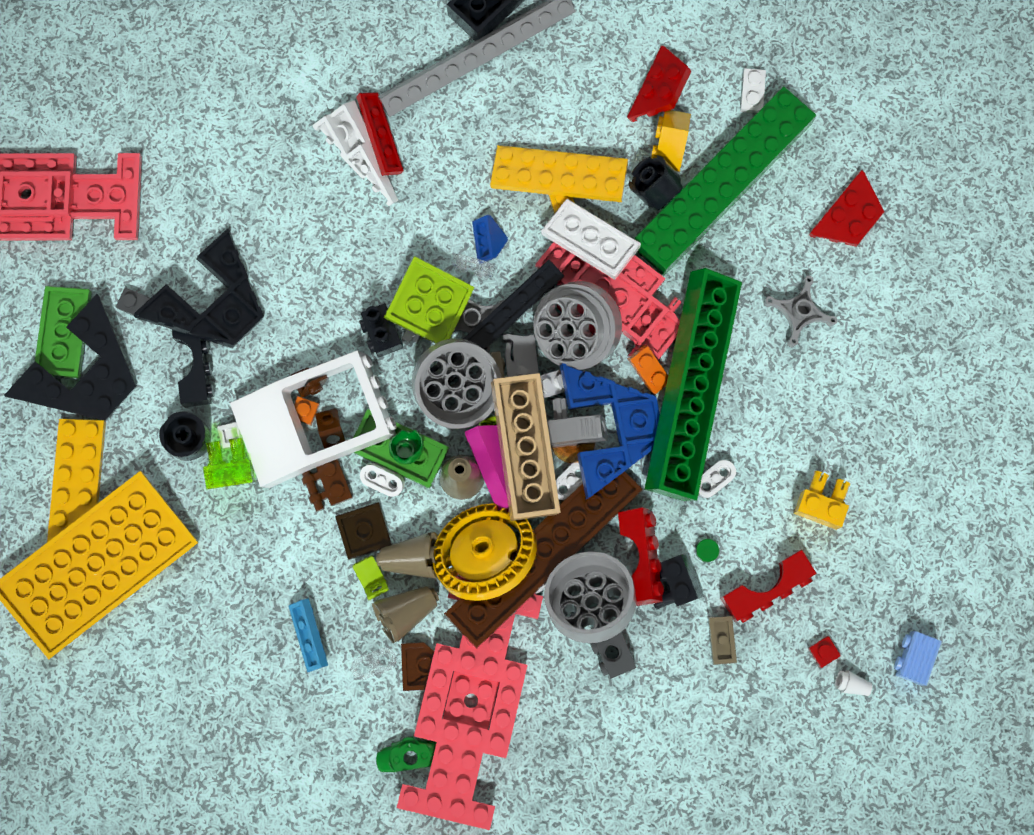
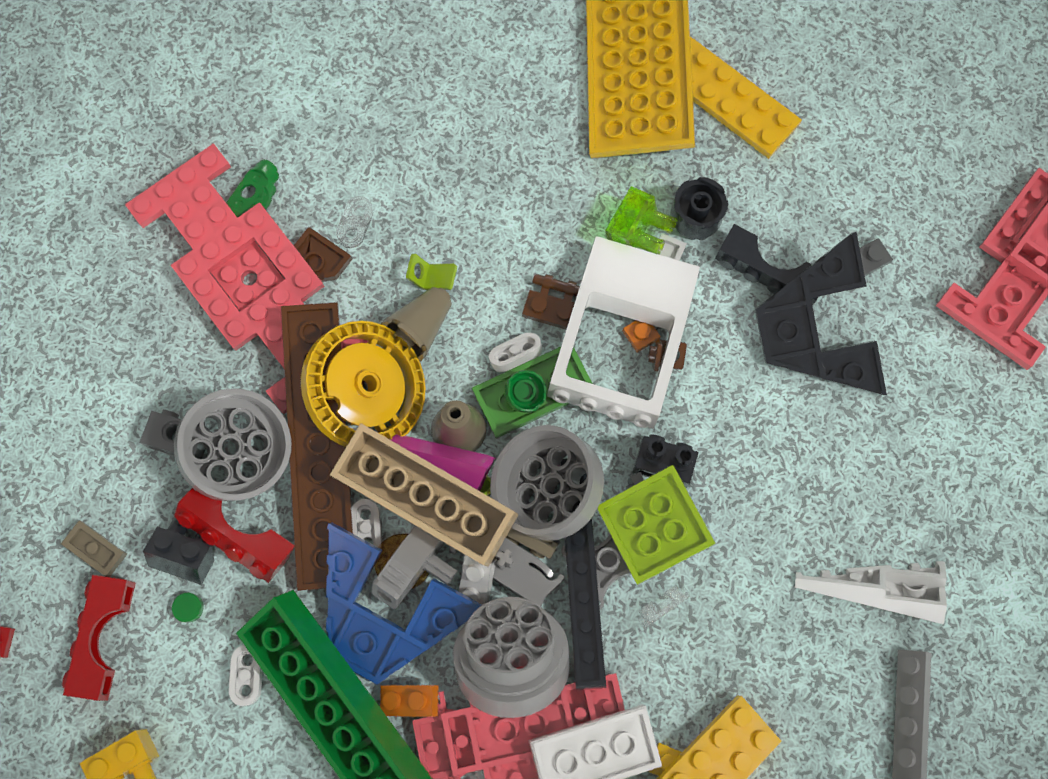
camera: 125 degrees right, 5 degrees down
(57, 347) = (887, 177): bright green plate -> none
(100, 389) = (805, 175): black wing -> none
(308, 635) = (427, 186): dark azure plate -> none
(329, 424) = (607, 342): reddish brown bracket -> none
(363, 531) = (482, 302): dark brown tile -> none
(379, 133) = (885, 623): red tile -> none
(404, 611) = (375, 278): dark tan cone -> none
(488, 238) = (681, 647): blue slope -> none

